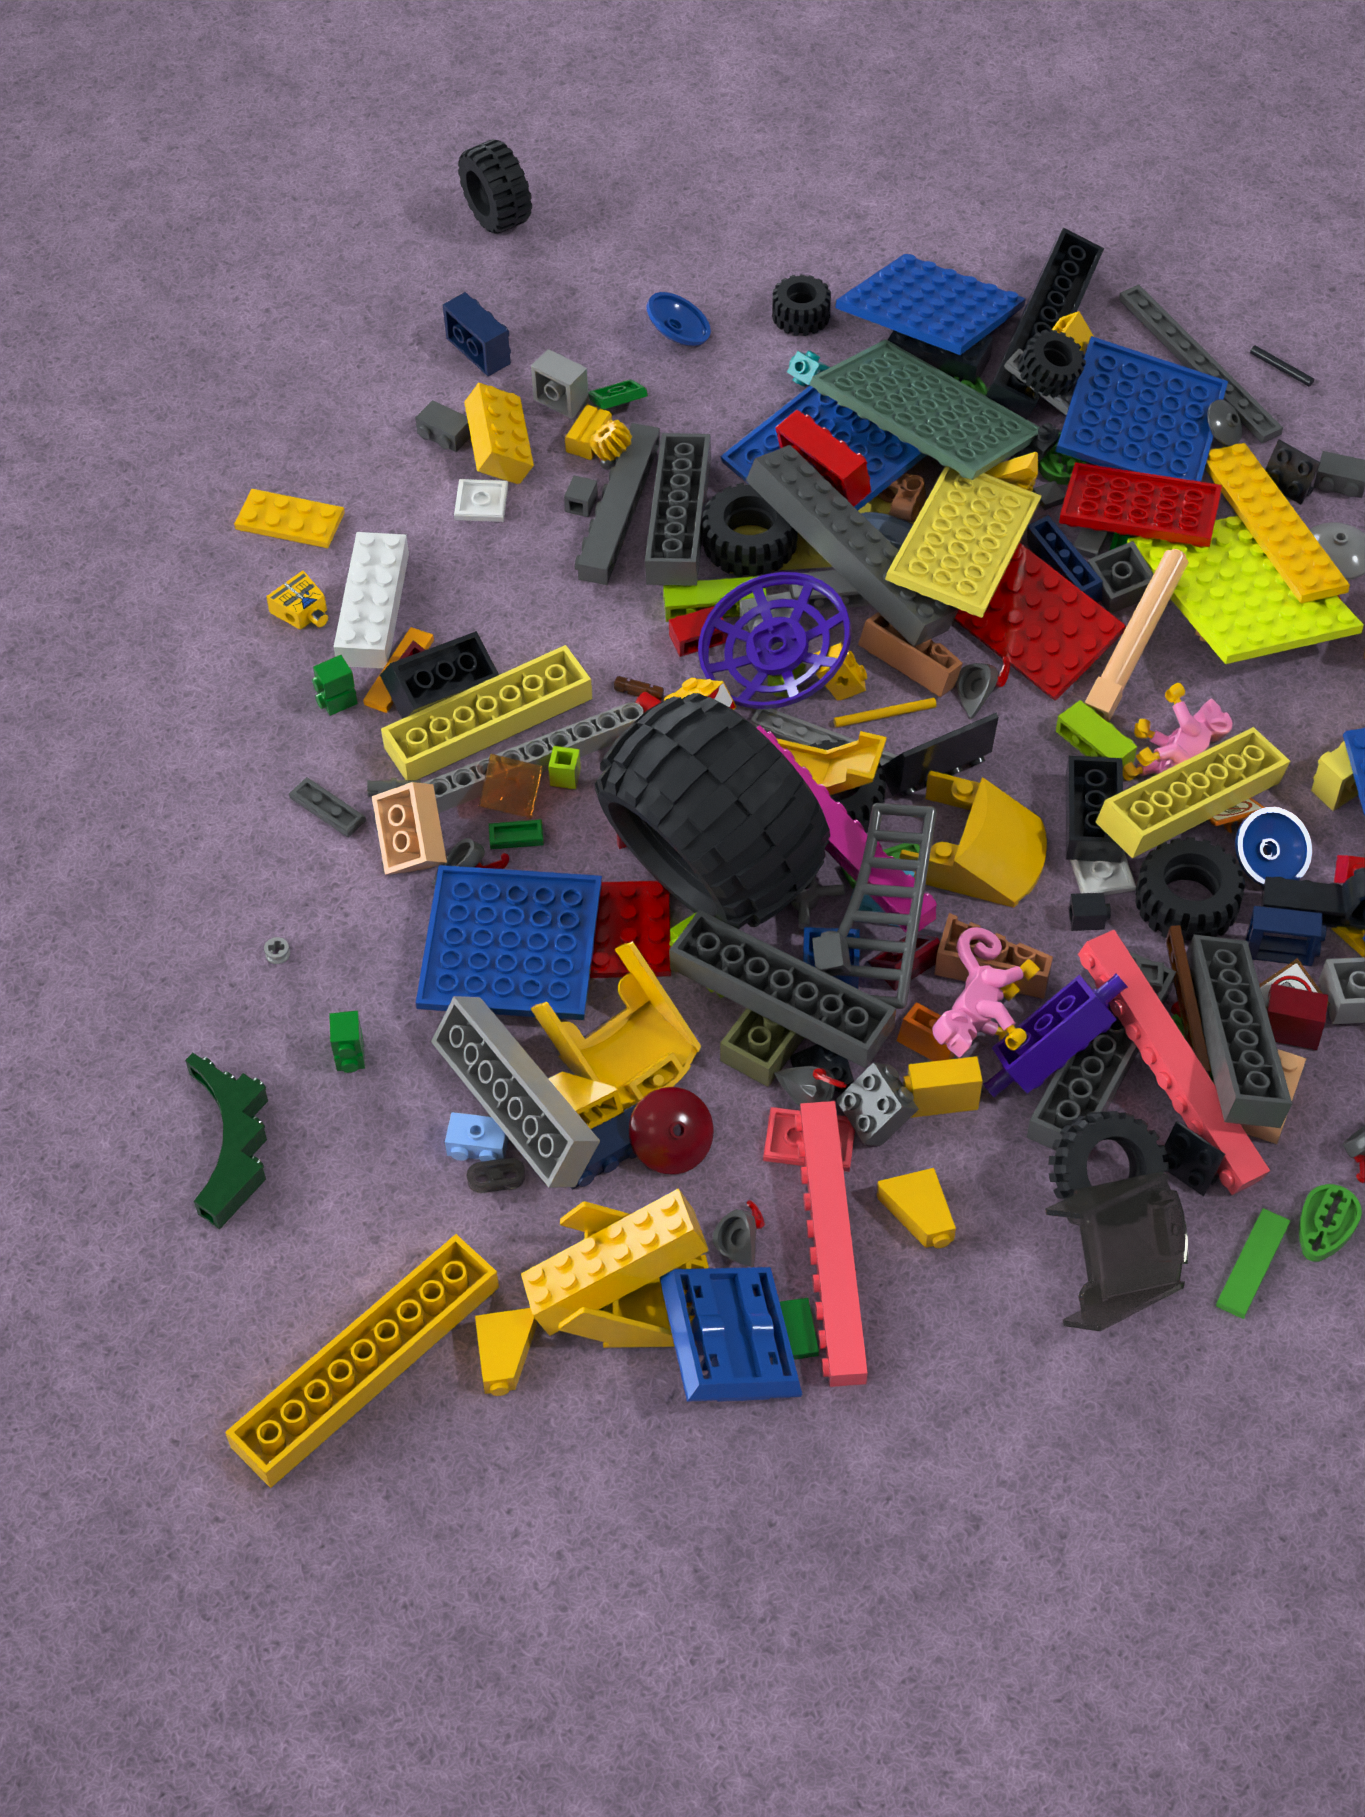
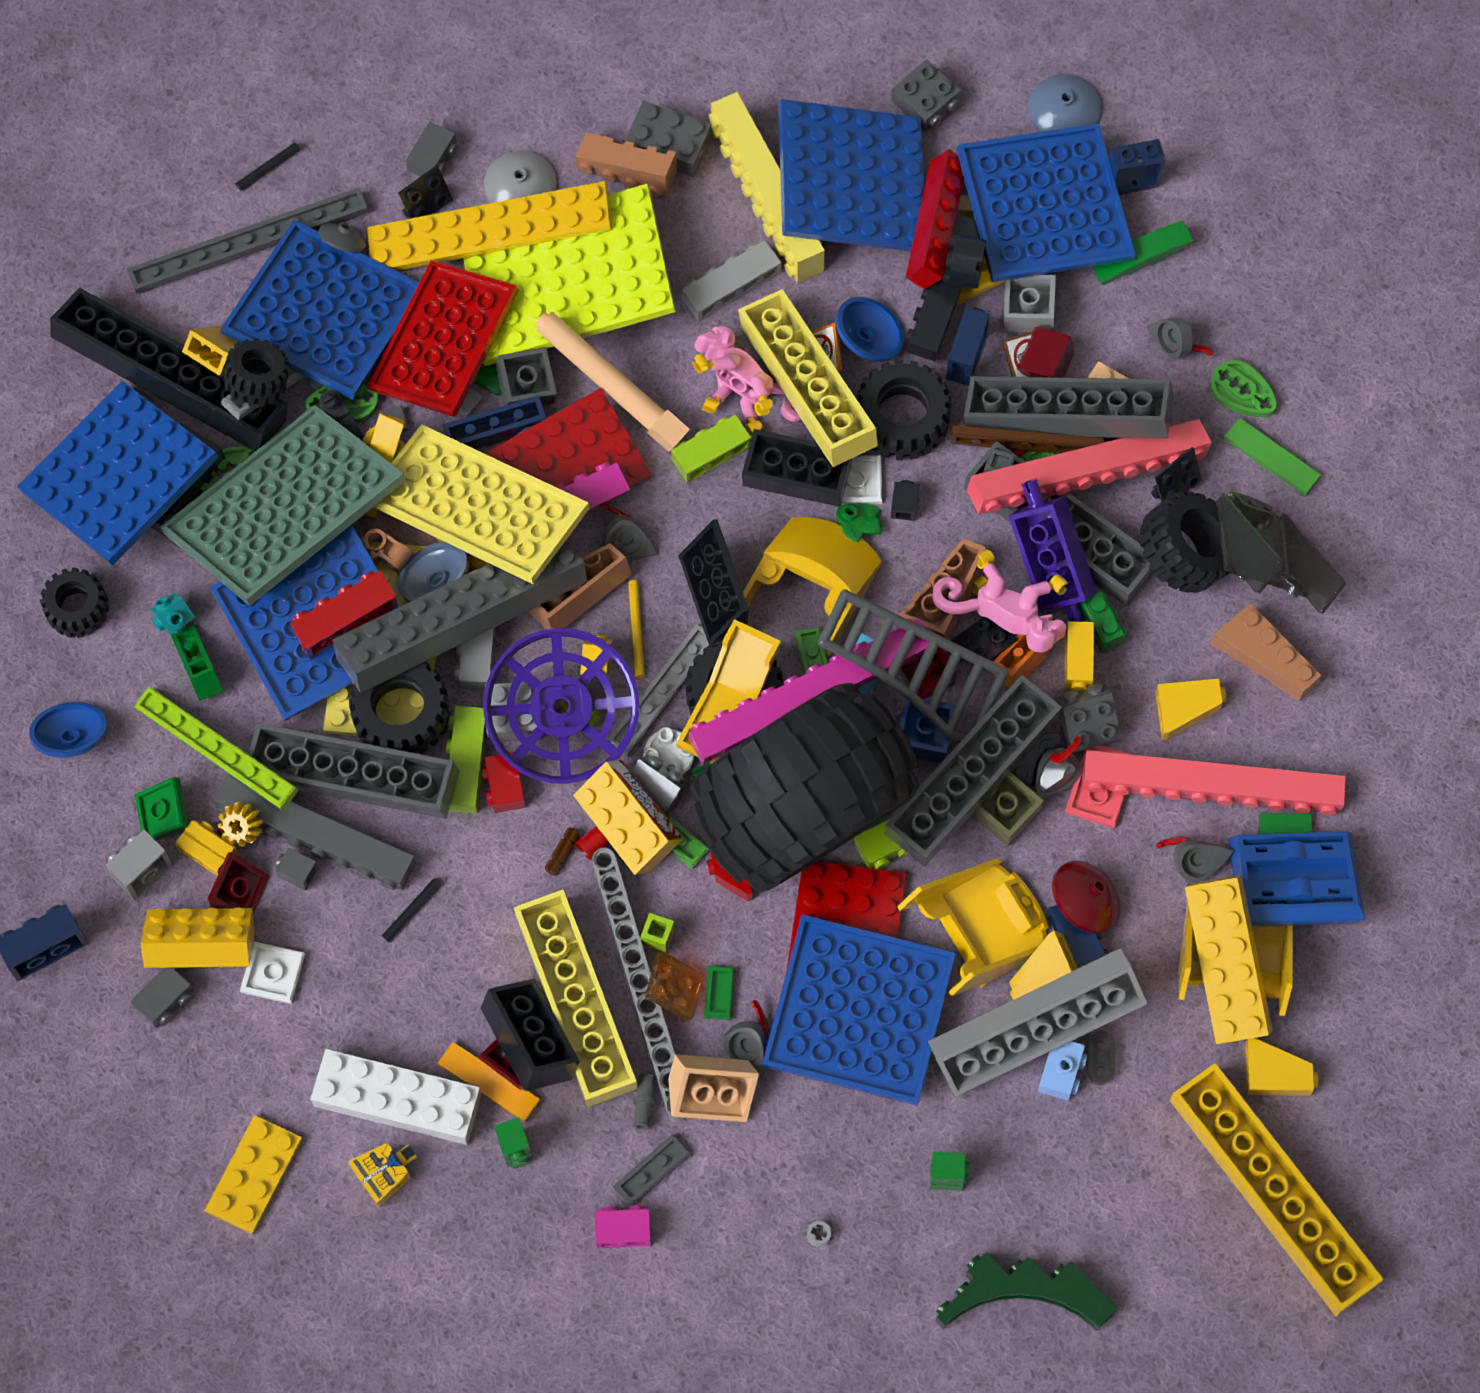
camera: 80 degrees left, 15 degrees up
(264, 788) = (622, 1227): none -> dark pink brick
(555, 455) = (237, 884): none -> dark red slope
(559, 587) = (410, 911): none -> black bar
(680, 414) = (216, 748): none -> lime tile
(762, 396) = (196, 663): none -> green slope
(831, 953) = (949, 719): dark grey brick -> none
(935, 992) = (985, 639): none -> black hinge
(997, 1110) = (1107, 630): none -> green brick
(1007, 1273) = (1266, 652): none -> nougat wedge
(1012, 637) = (599, 486): none -> dark pink brick
(1053, 878) = (861, 520): none -> green plate
(1287, 726) = (731, 280): none -> light grey brick

